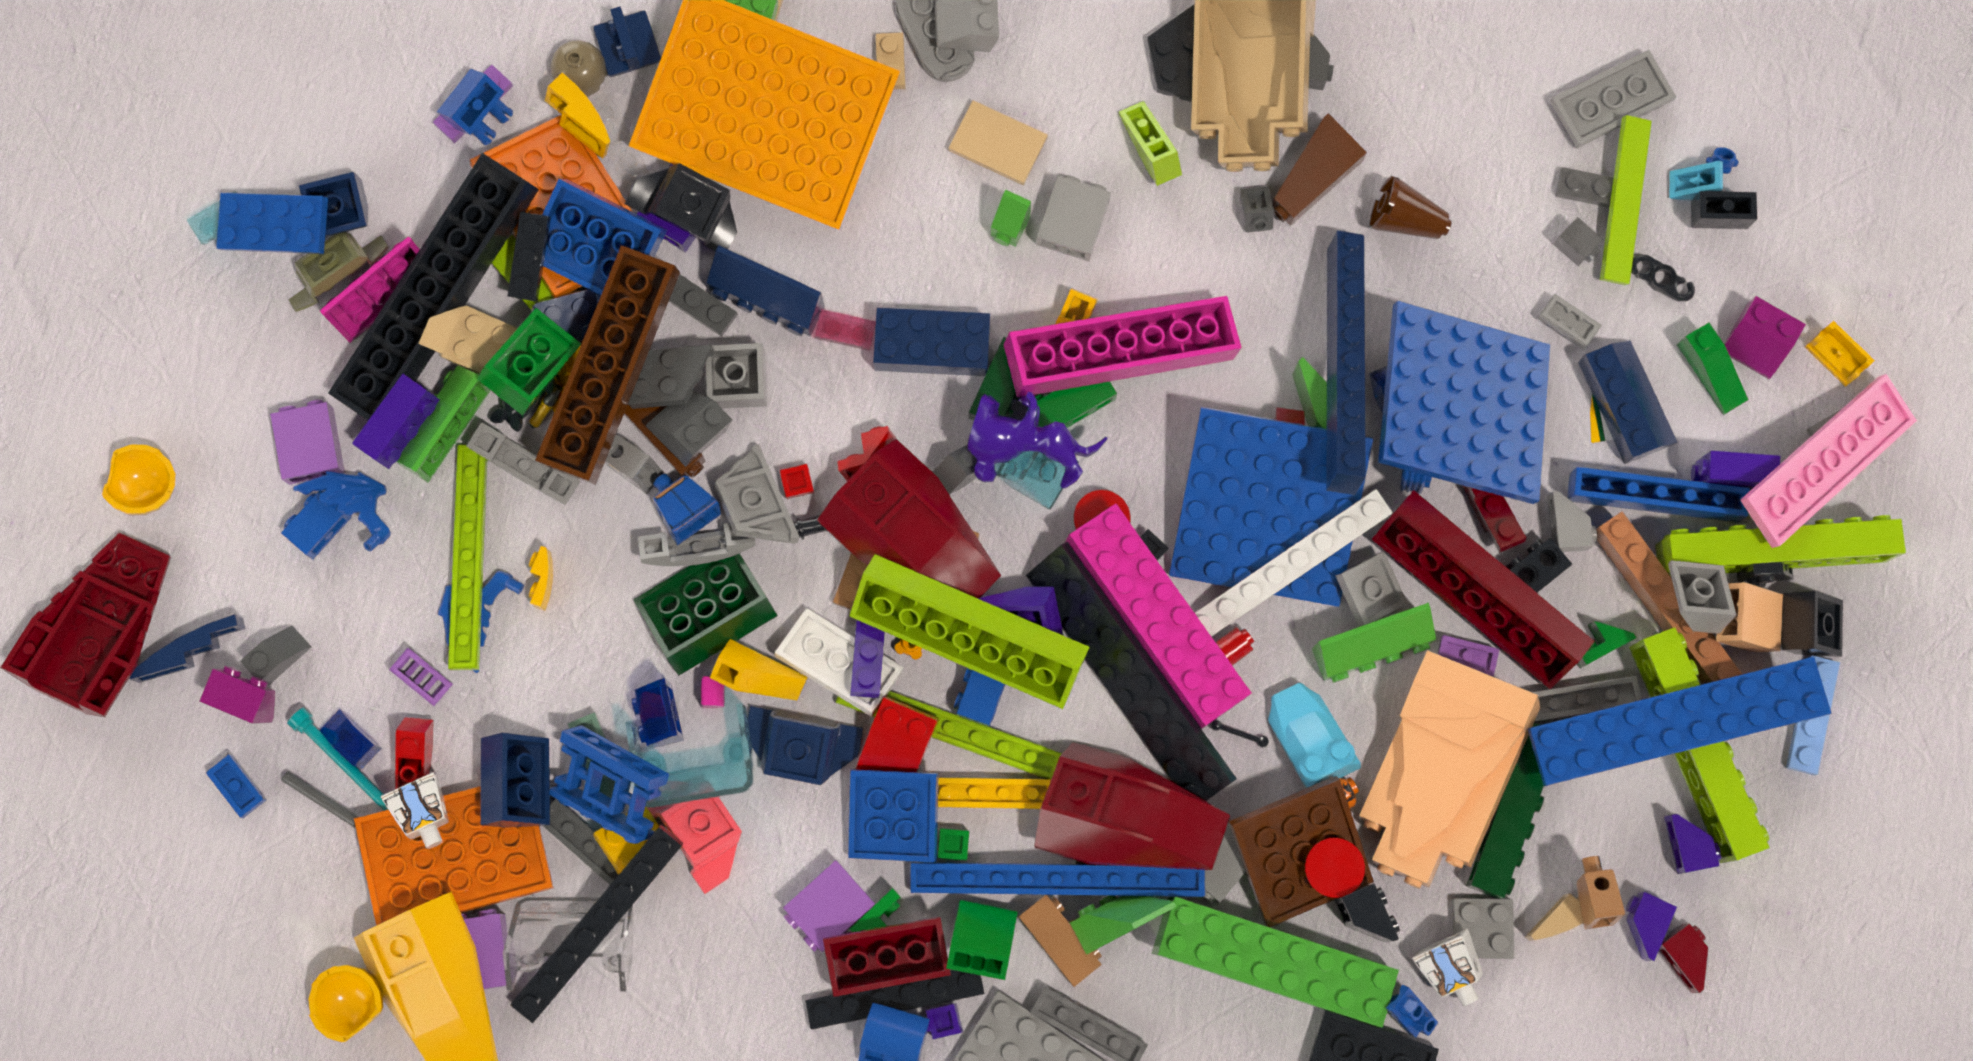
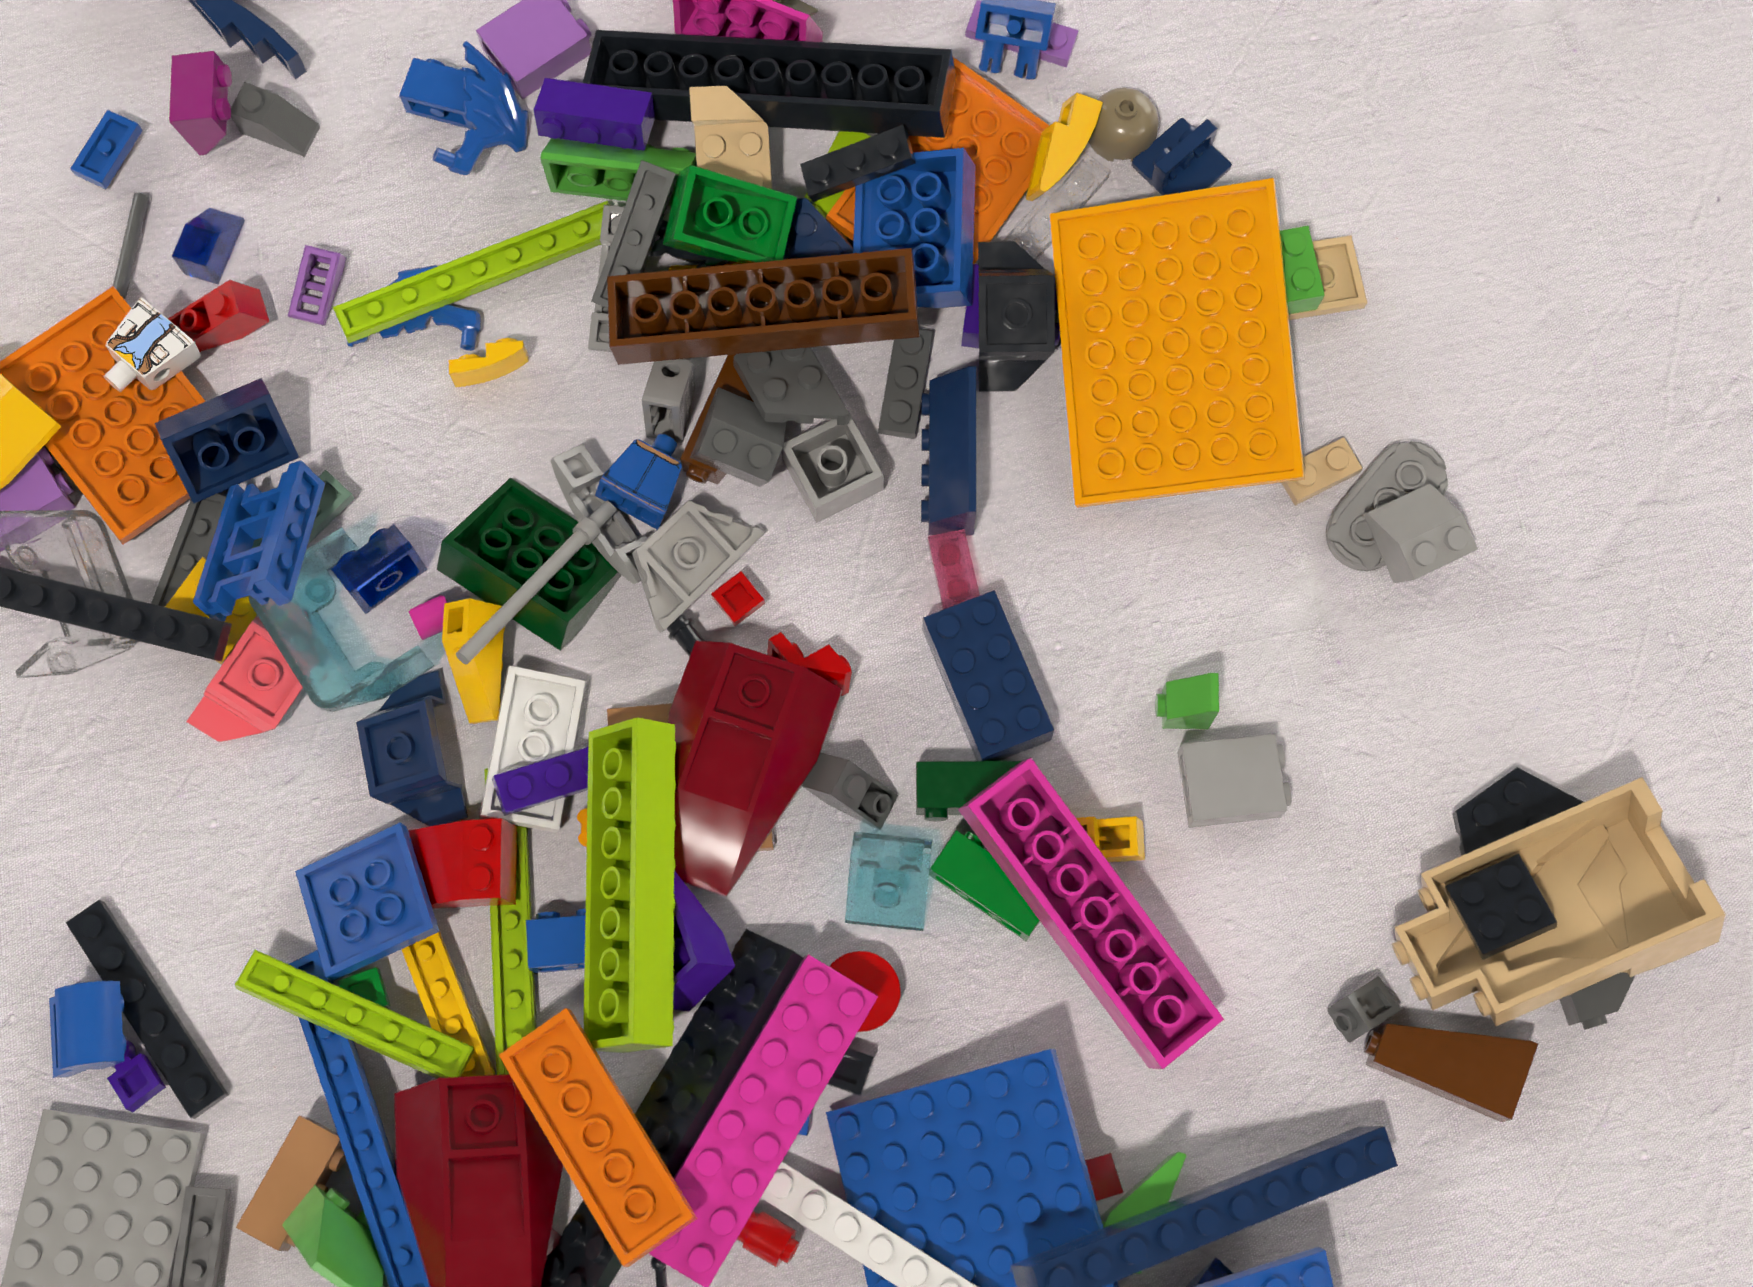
camera: 65 degrees right, 5 degrees down
(303, 722) = (208, 185): teal piece -> none
(503, 432) = (637, 225): none -> dark grey plate
(705, 562) = (582, 534): none -> light grey bar
(828, 906) = (224, 875): medium lavender brick -> none
(872, 918) = (226, 939): green slope -> none
(886, 956) = (181, 974): dark red slope -> none
(970, 854) = (353, 1017): none -> lime tile
(982, 940) = (248, 1081): green brick -> none
(998, 142) = (1283, 646): tan tile -> none
(1003, 438) = (894, 814): dark purple animal -> none
(1125, 719) = (597, 1137): none -> orange plate
(1151, 143) = (1379, 834): lime slope -> none
(1234, 91) = (1501, 906): none -> black plate
(1408, 212) = (1460, 1213): reddish brown cone -> none

